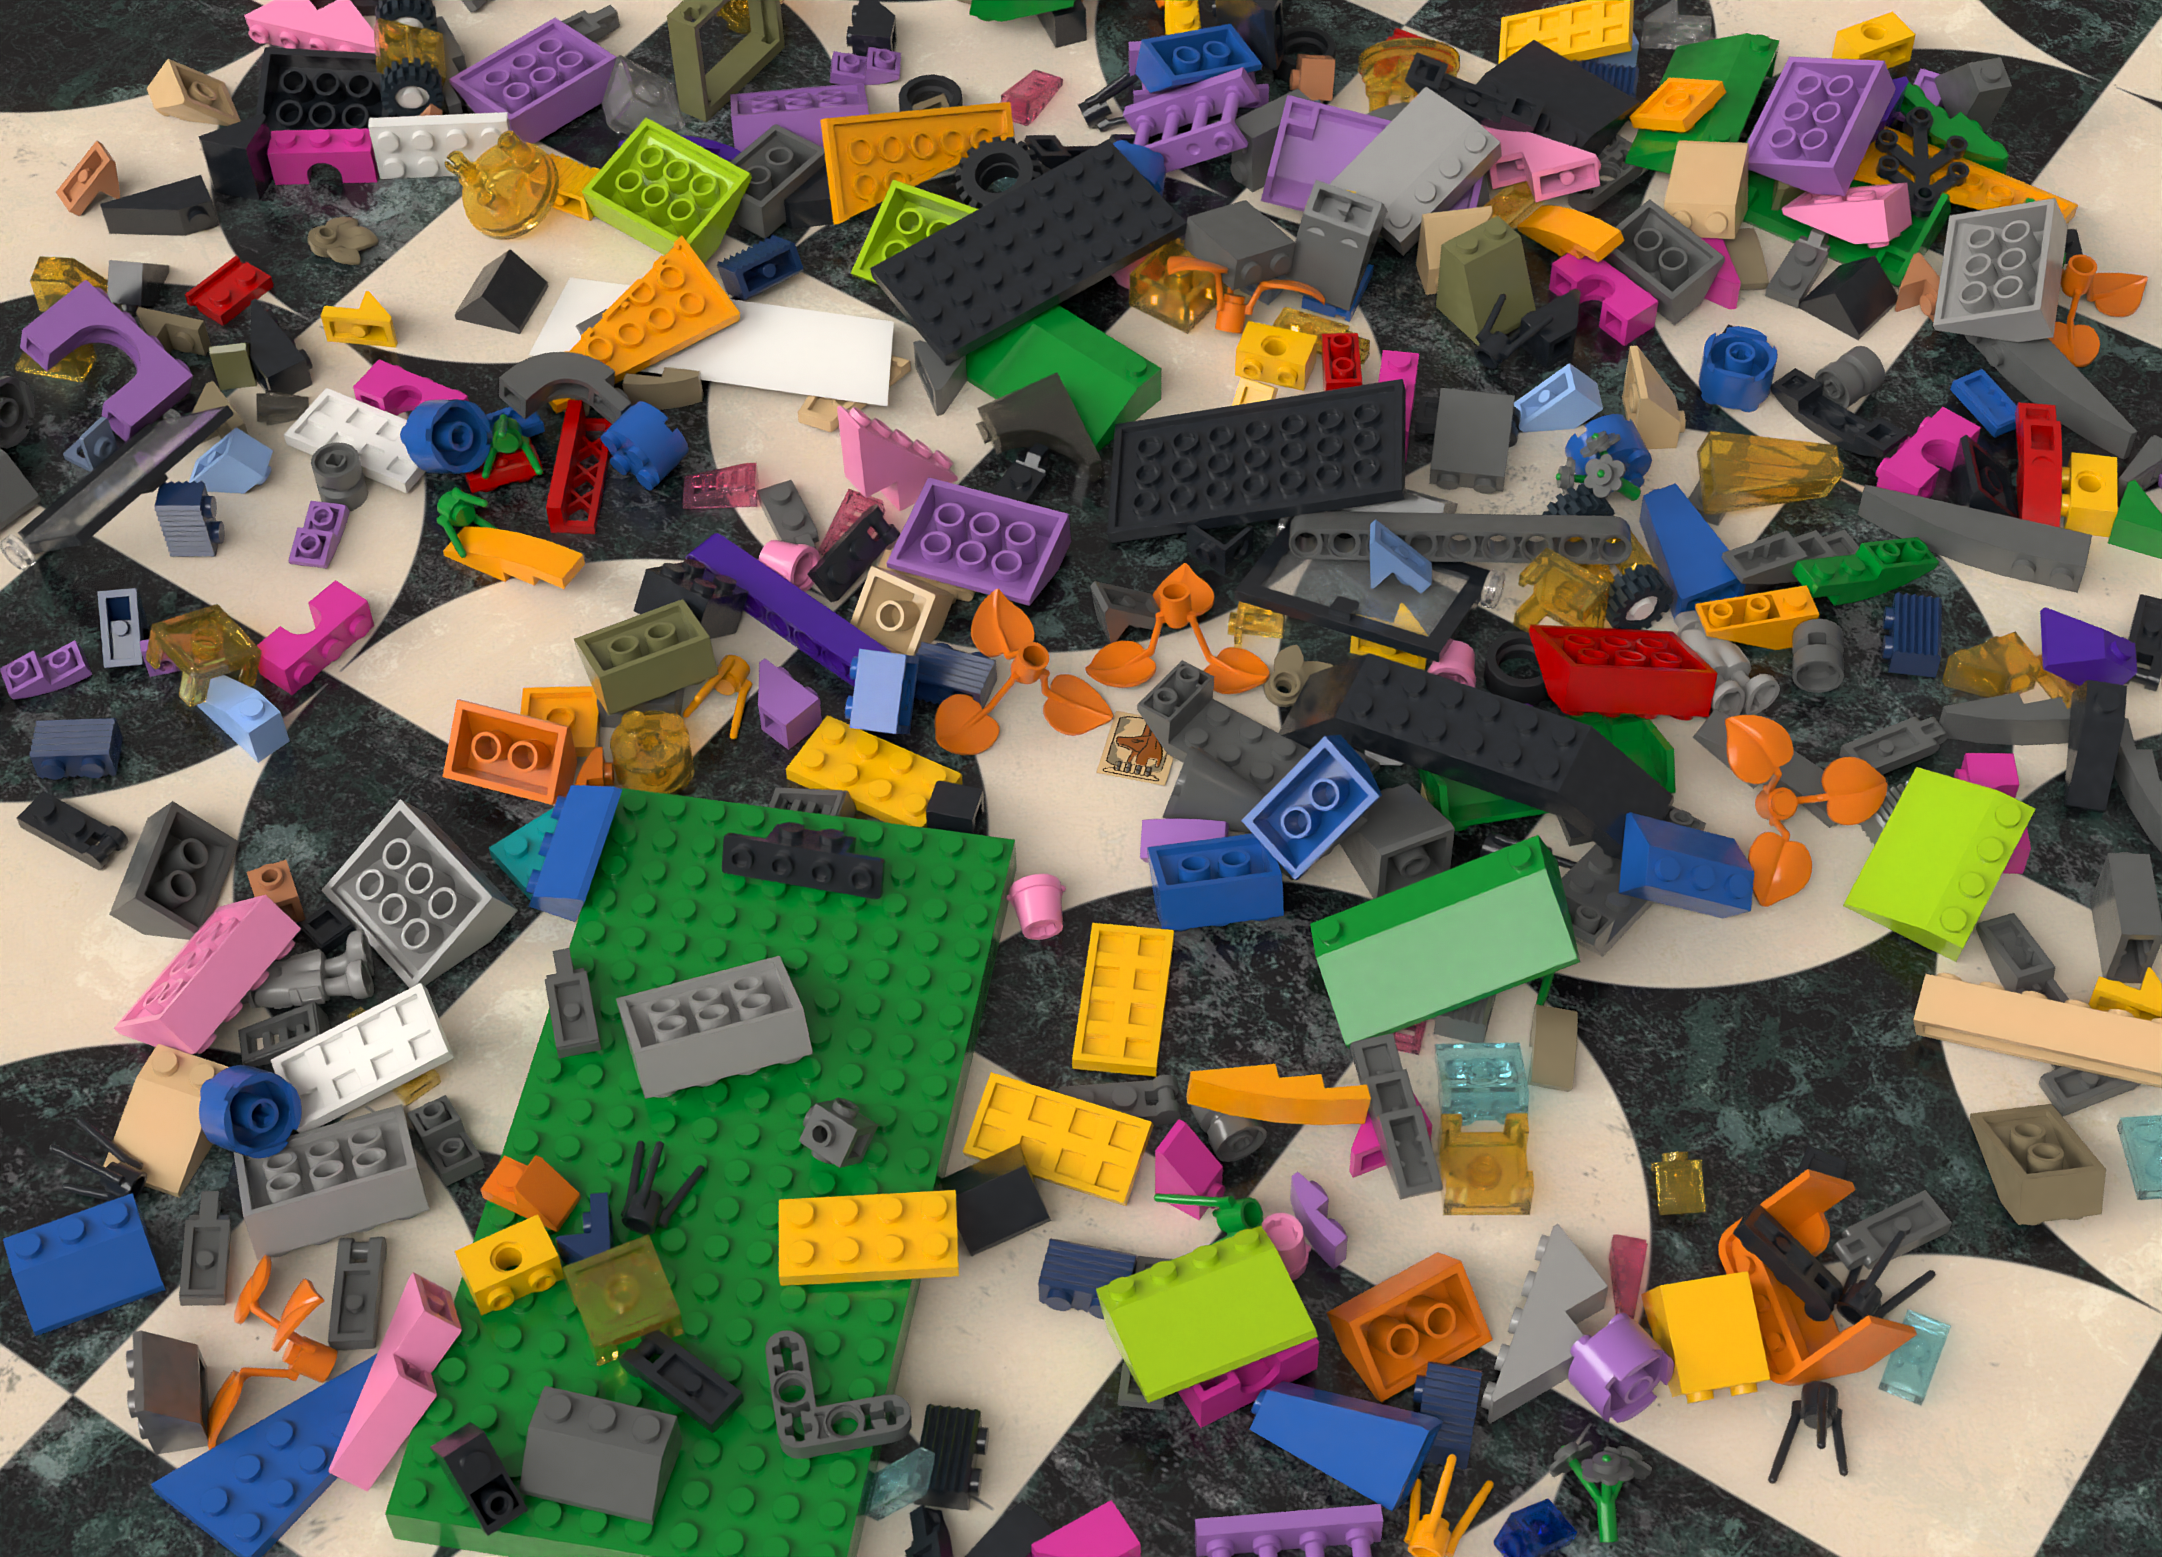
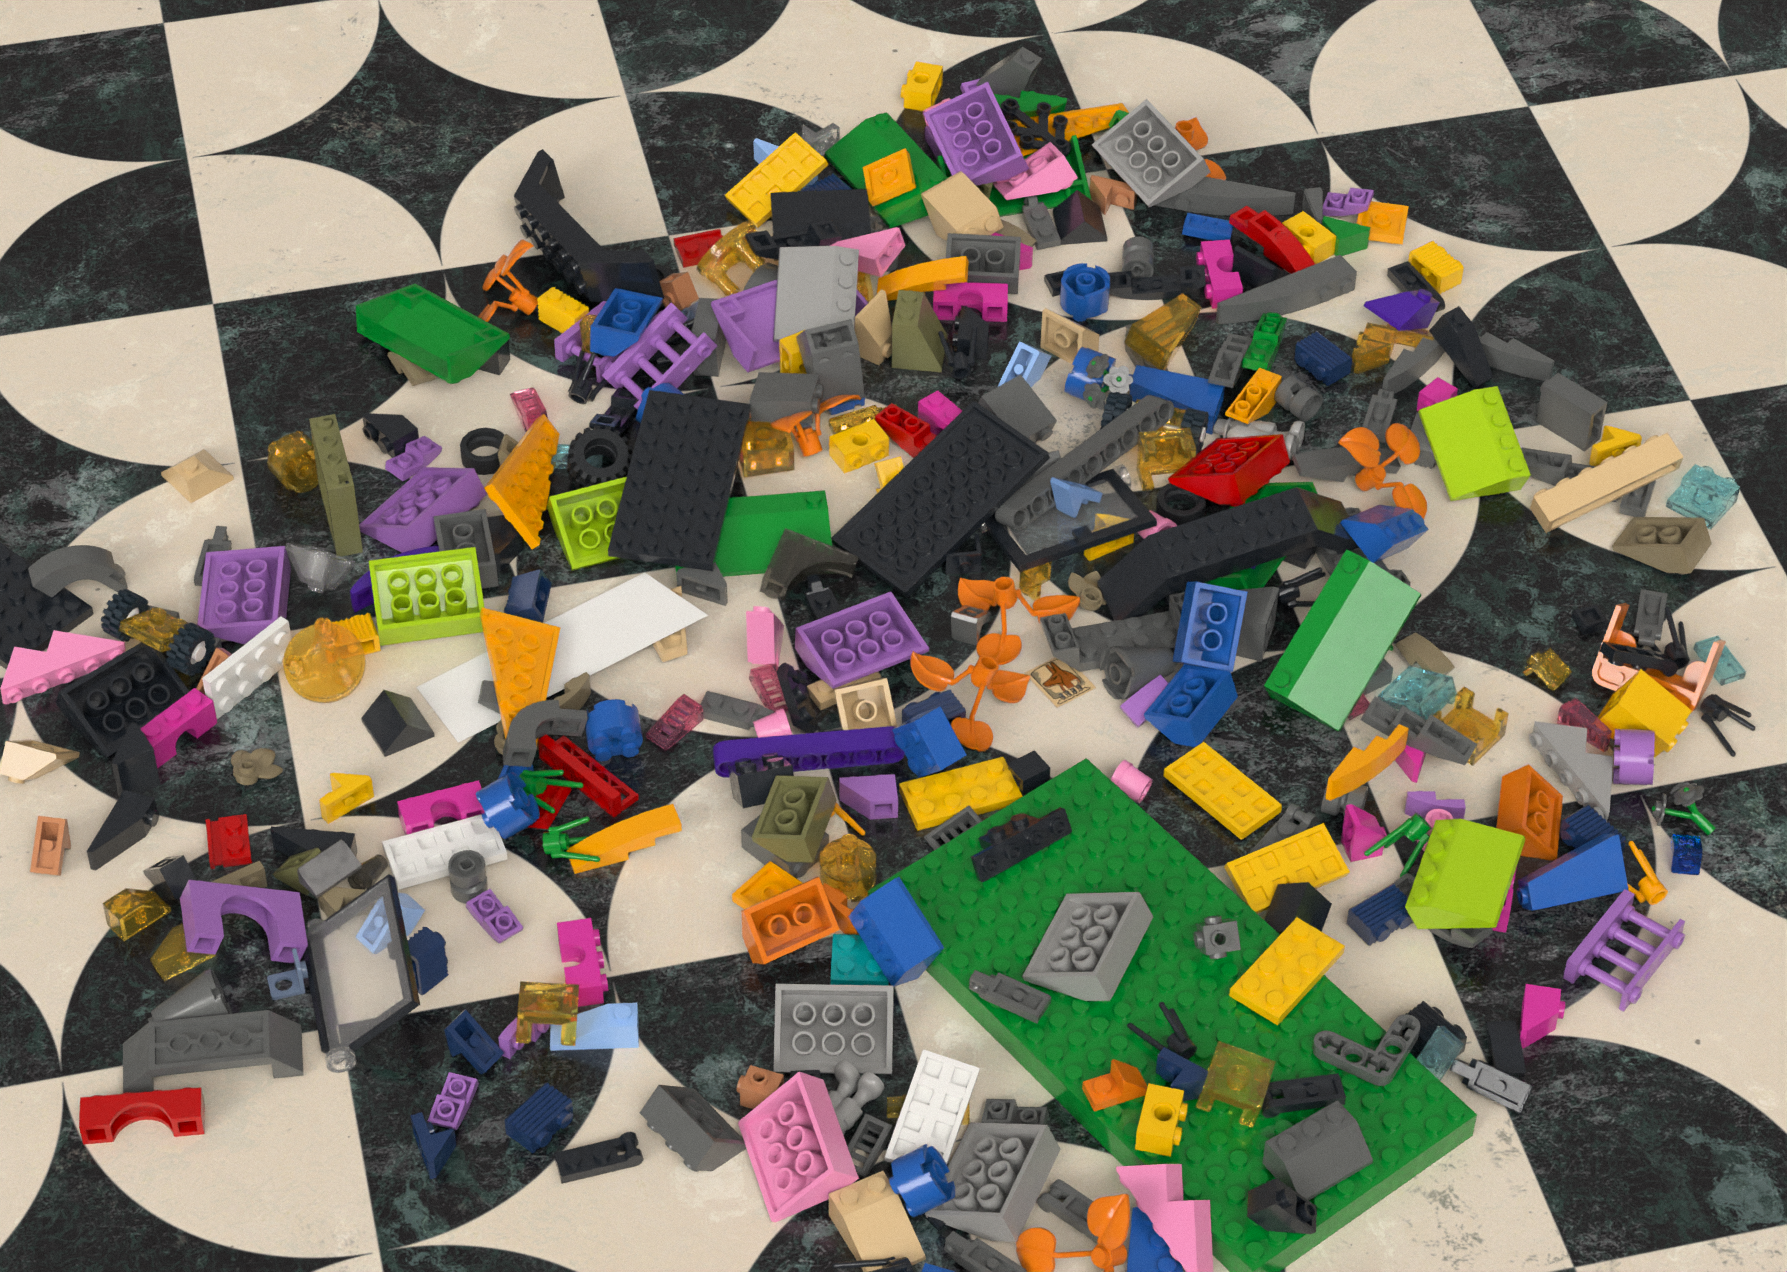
camera: 50 degrees left, 5 degrees down
(231, 370) = (328, 869): none -> flat silver slope

